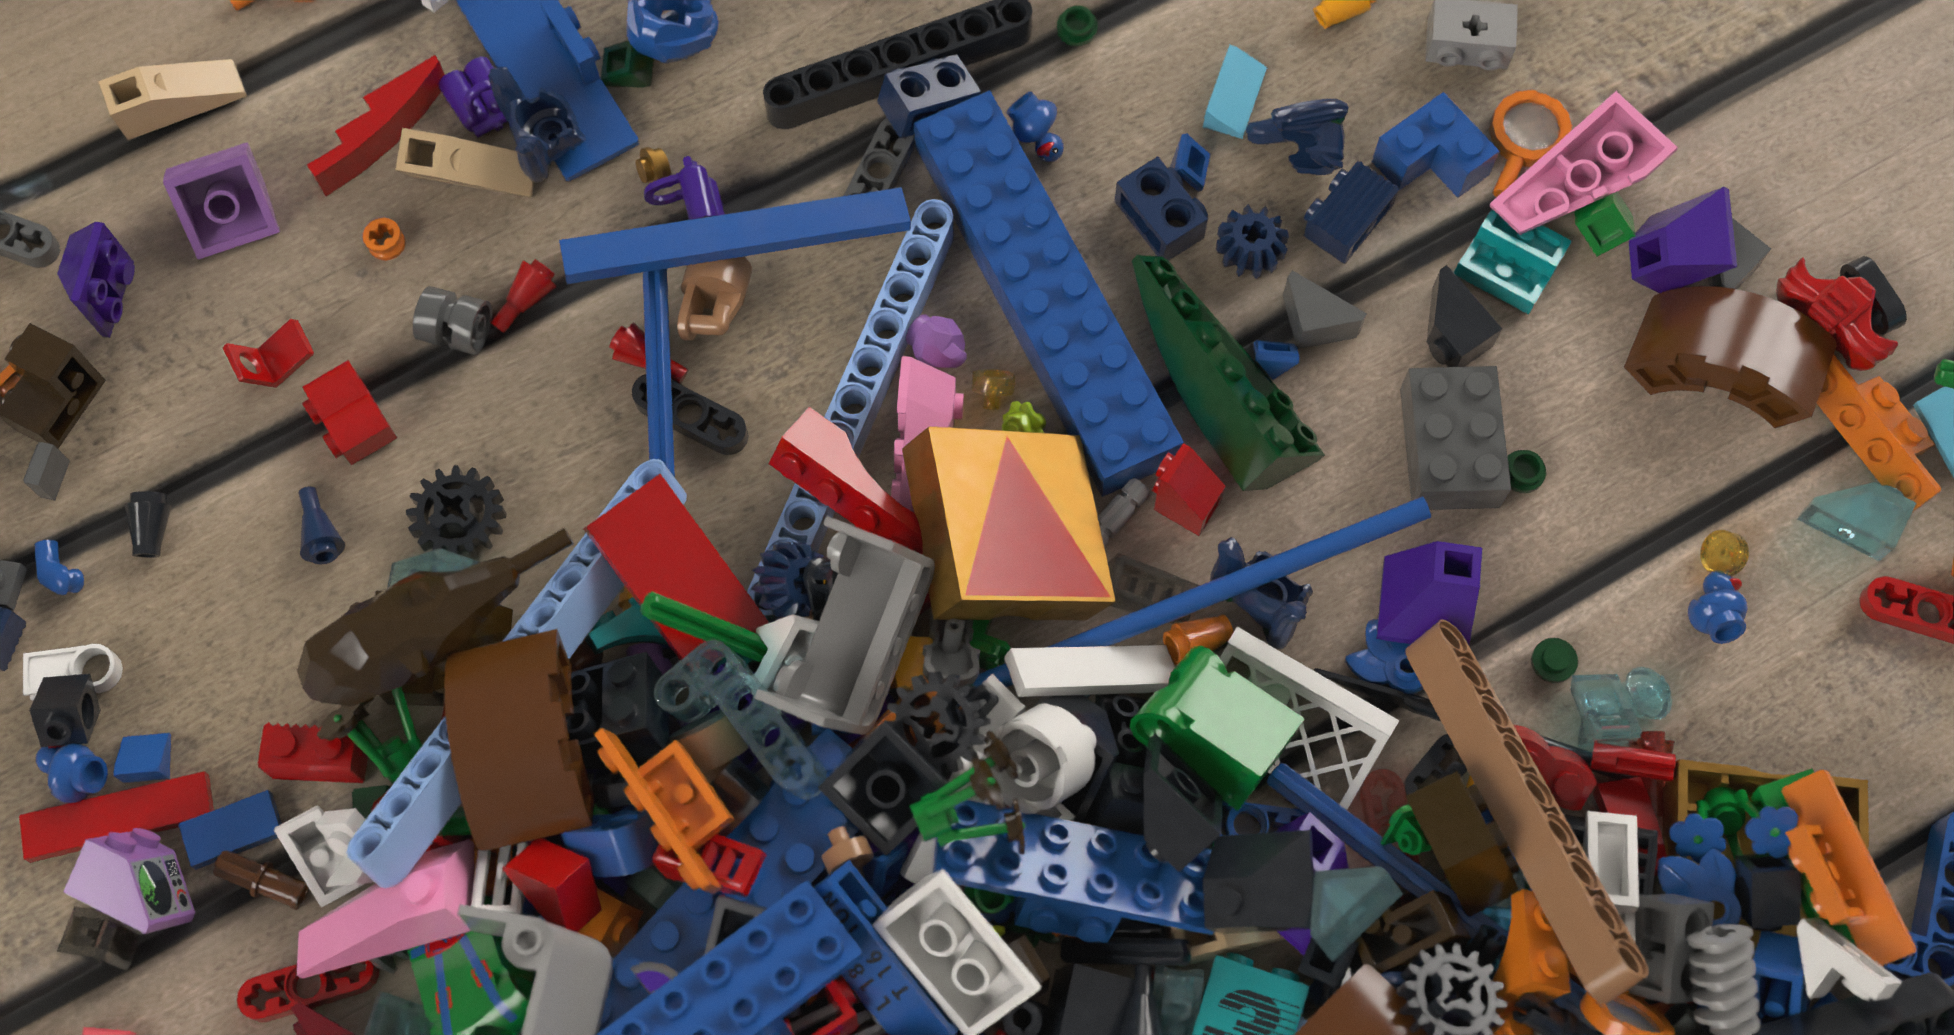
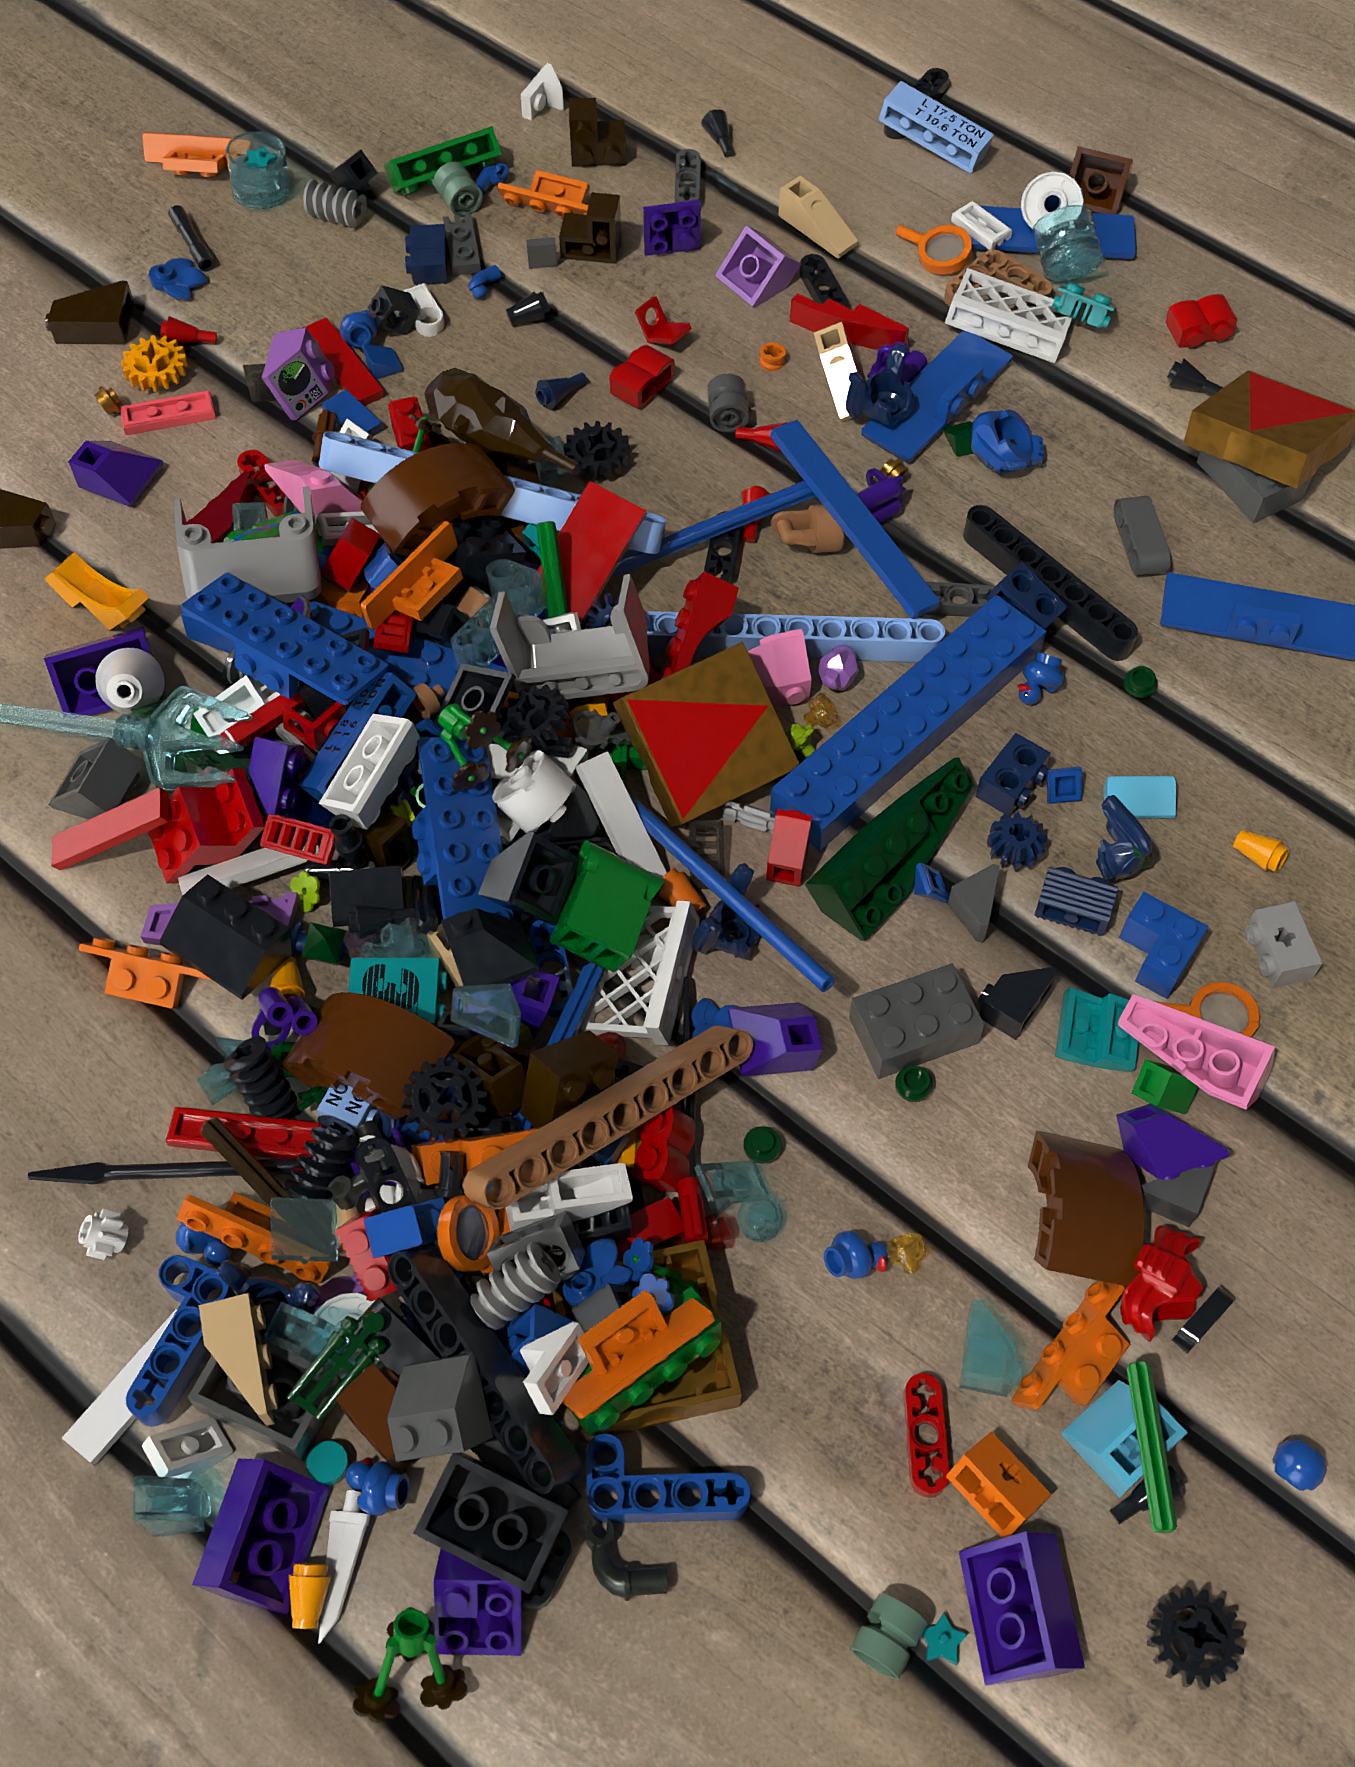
camera: 70 degrees right, 10 degrees down
(276, 121) = (824, 276): none -> black beam

